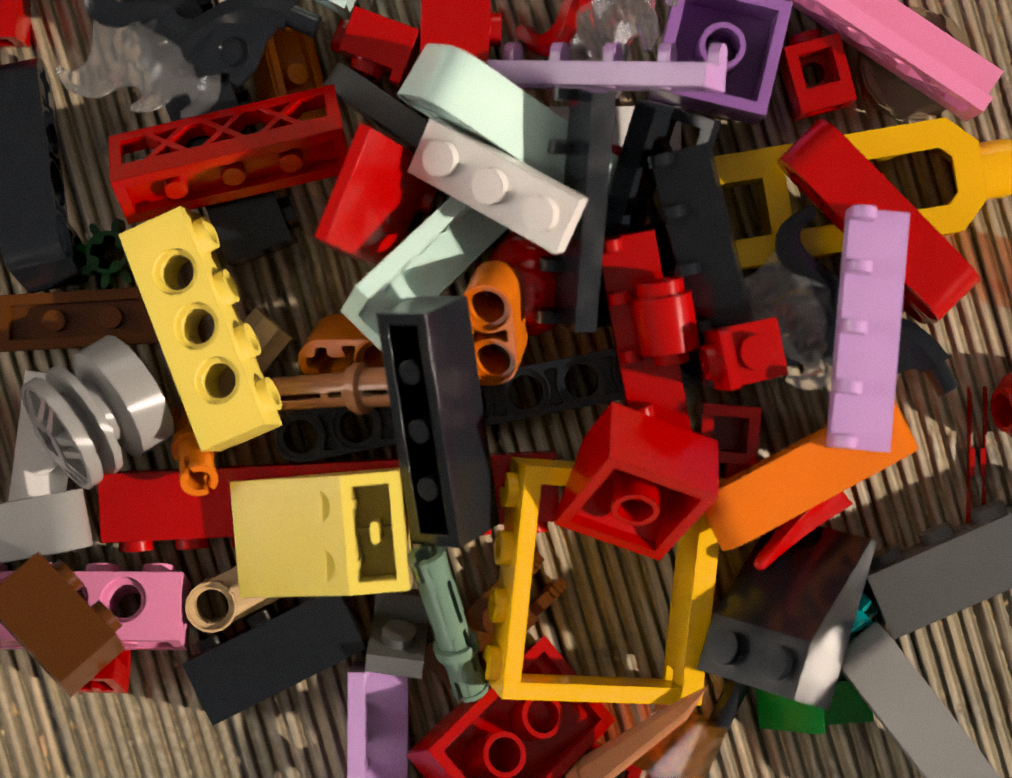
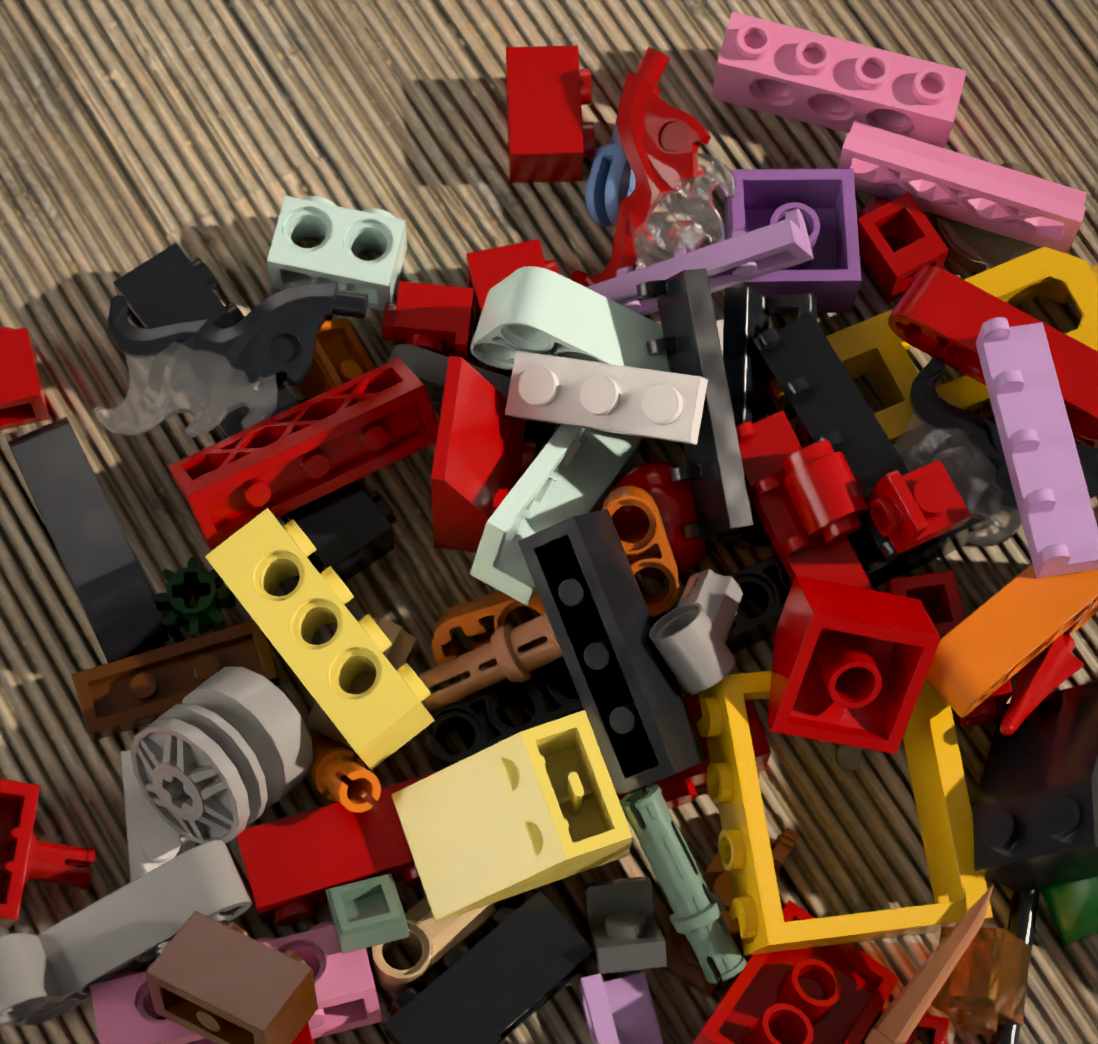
camera: 20 degrees left, 20 degrees down
(187, 573) = (367, 913): none -> sand green tile
(513, 422) = (696, 631): none -> light grey piece

